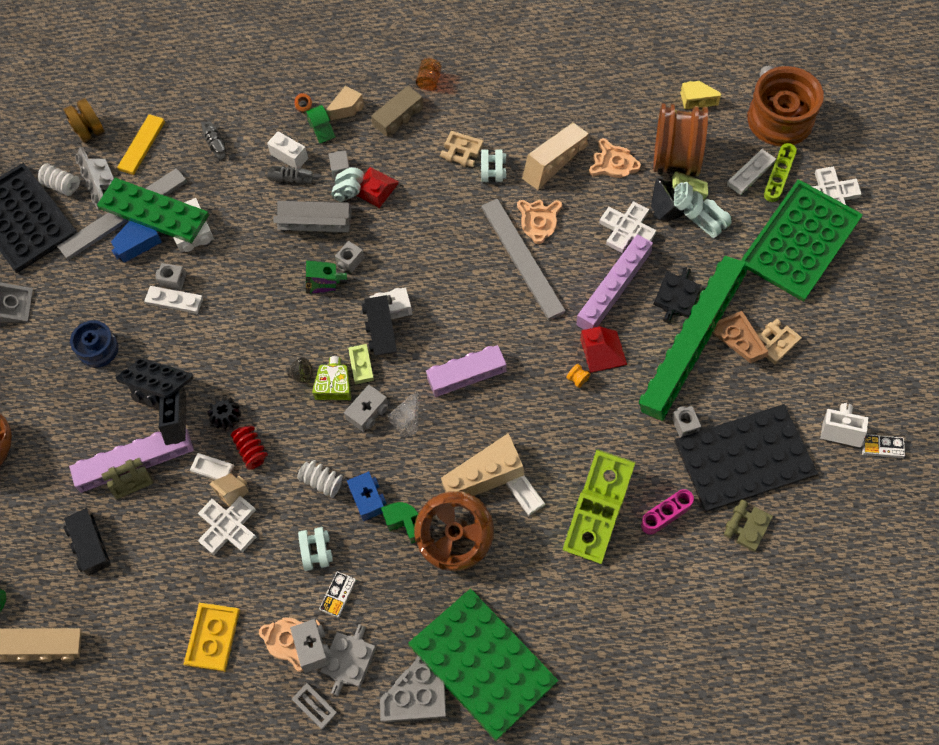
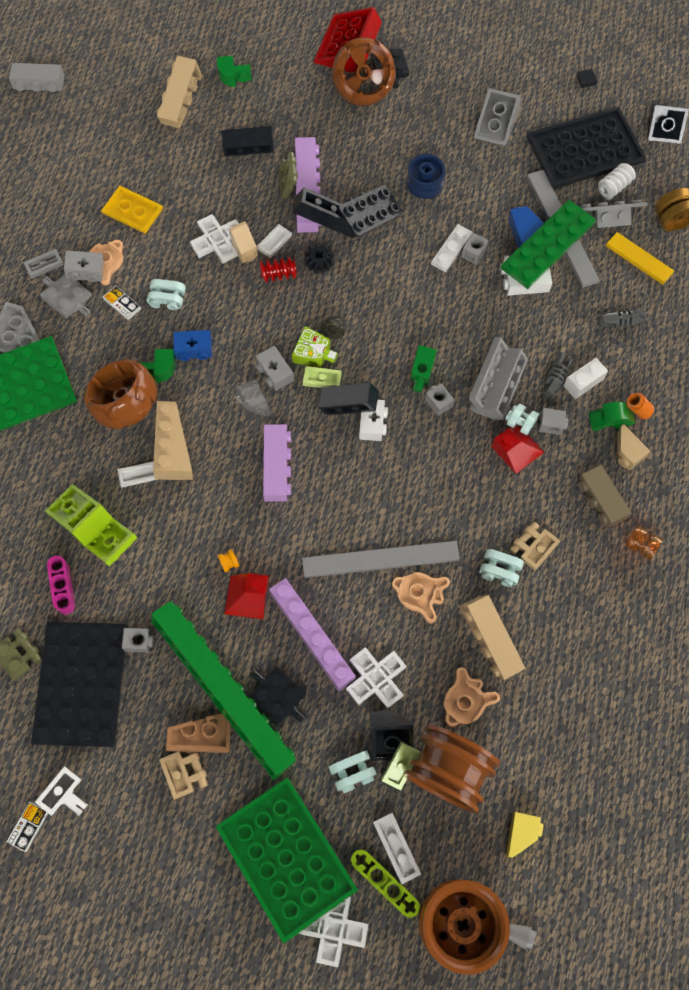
camera: 105 degrees right, 5 degrees up
(320, 479) = (224, 314): white piece -> none
(688, 200) = (375, 747): light aqua brick -> none

